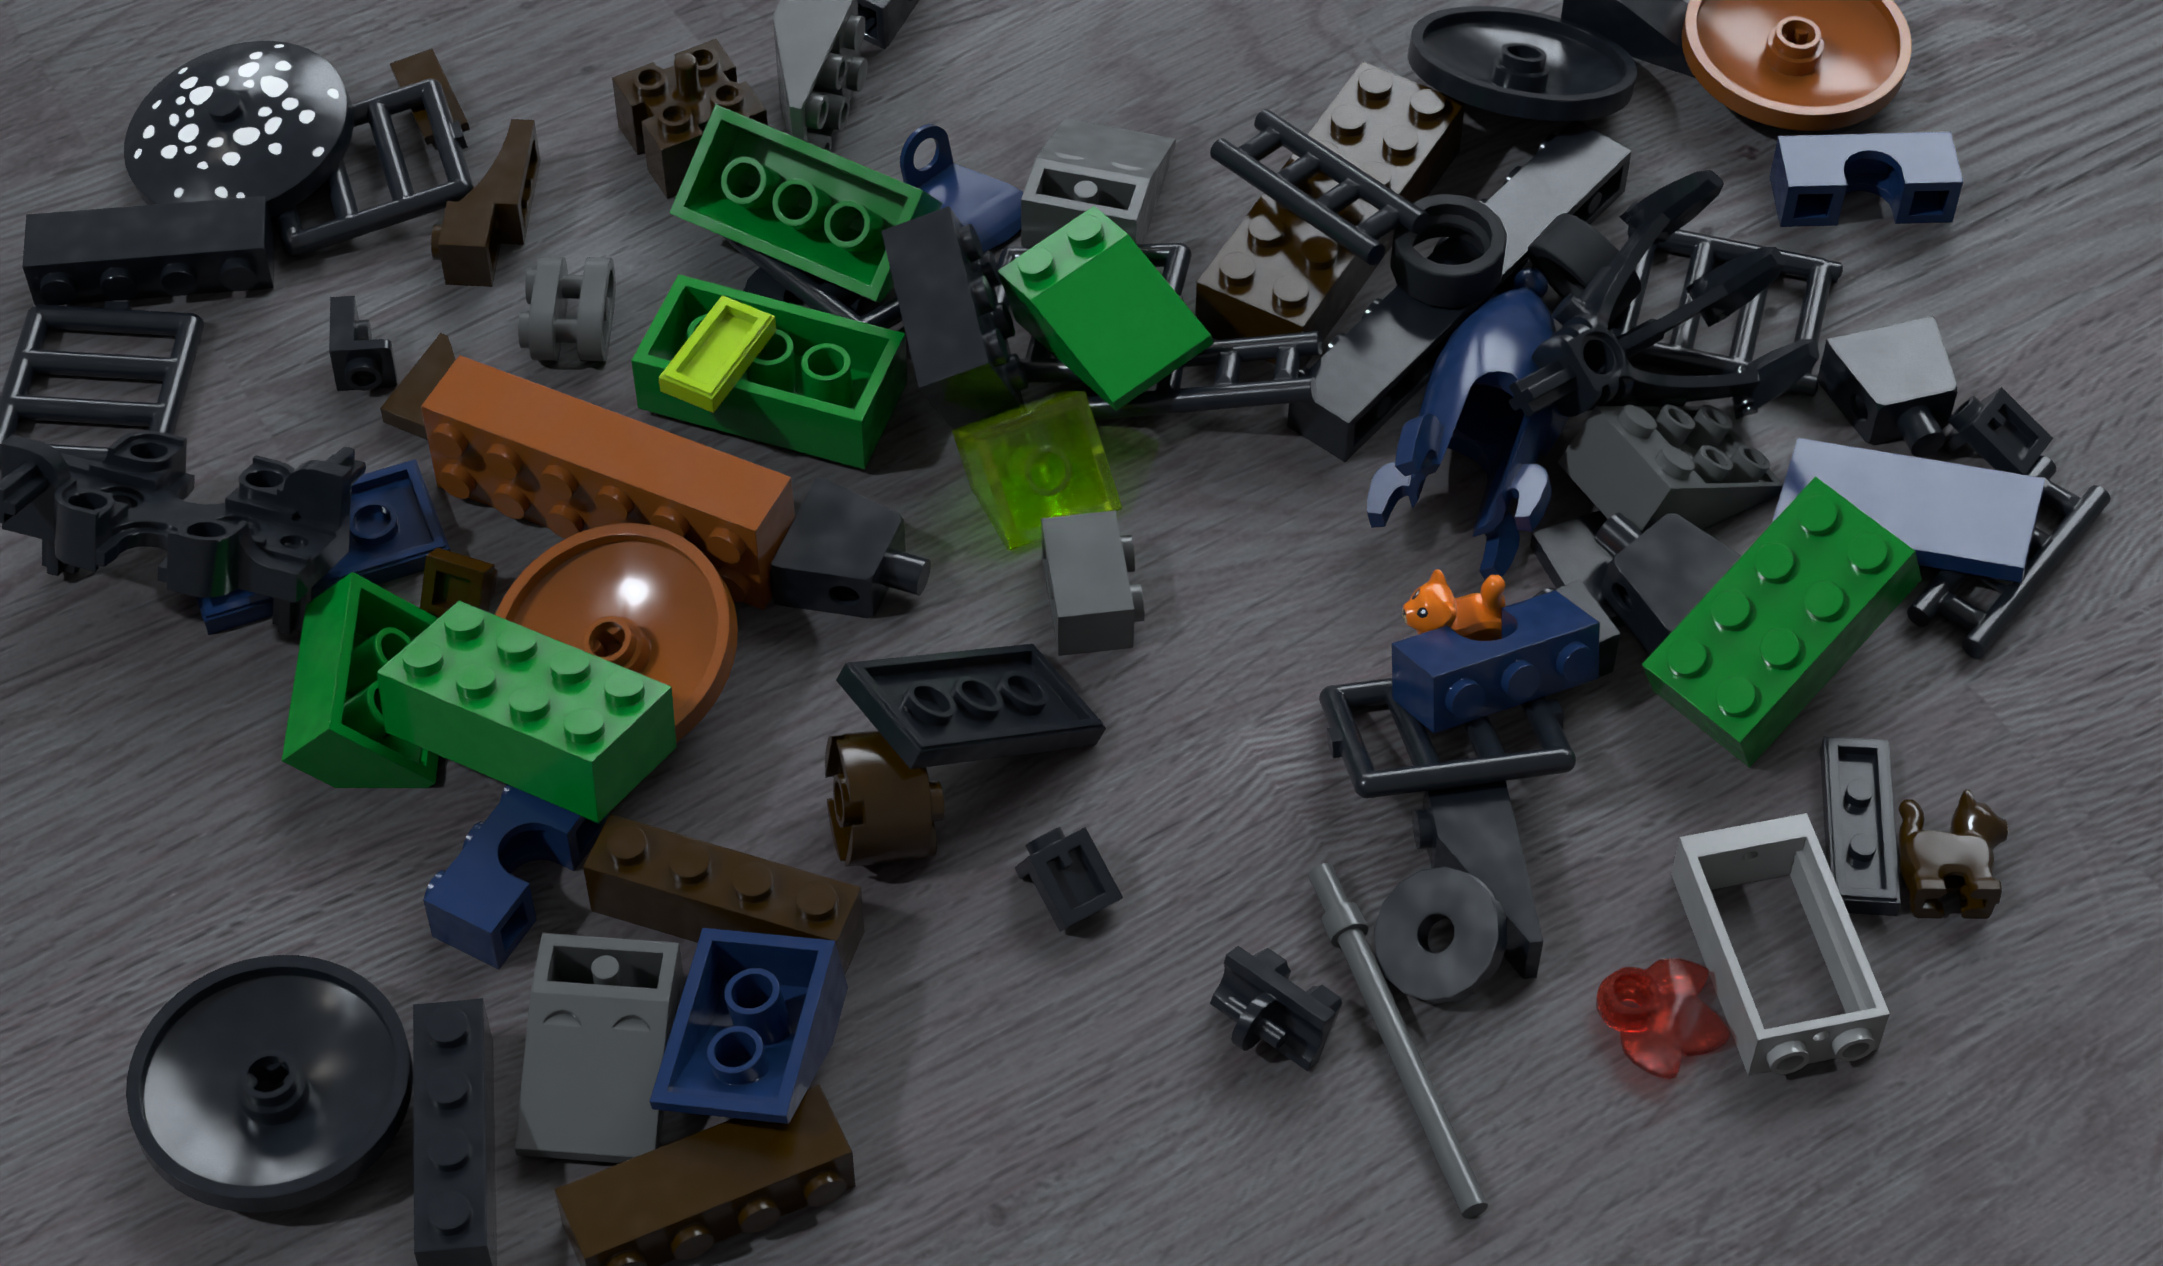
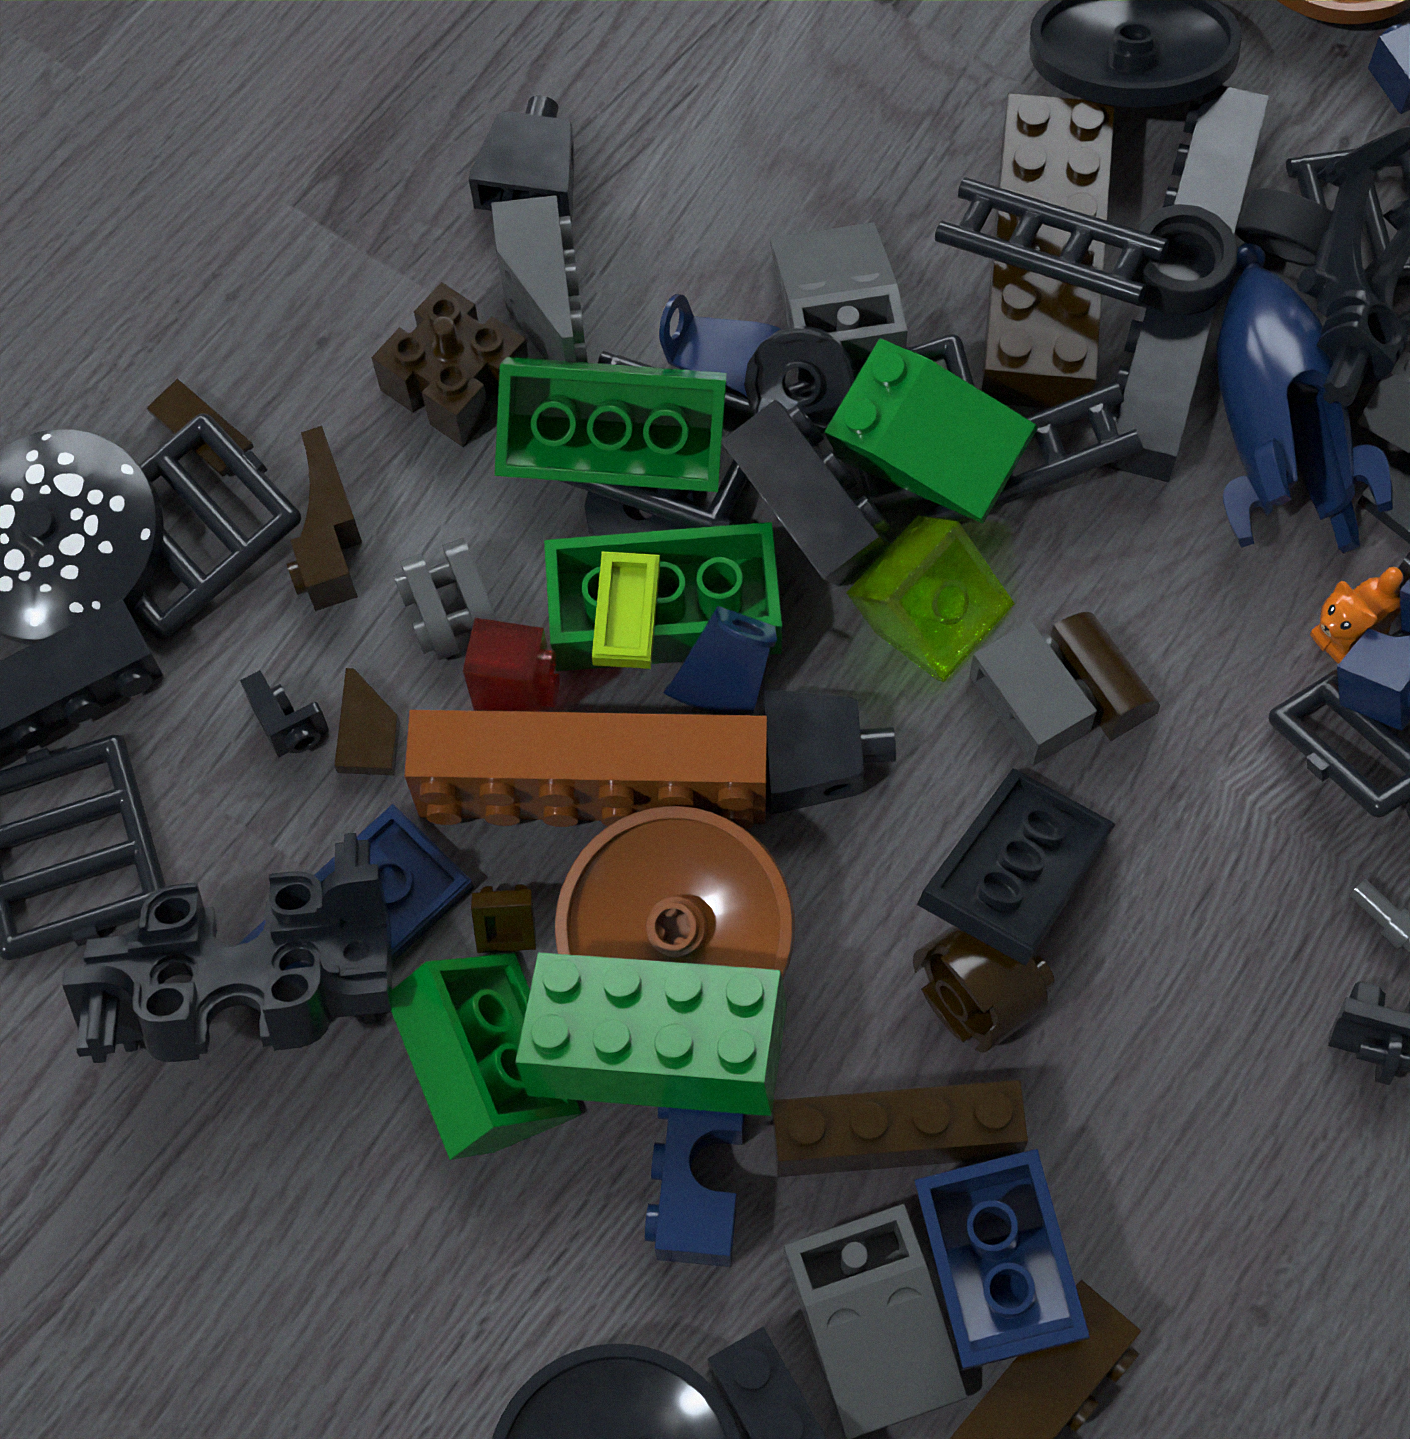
camera: 20 degrees left, 15 degrees up
(584, 360) = (510, 668): none -> clear red brick
(796, 436) = (725, 665): none -> dark blue piece
(1010, 196) = (805, 349): none -> black tile
(1069, 876) = (1162, 981): black bracket -> none
(1171, 590) = (1094, 657): none -> dark brown brick

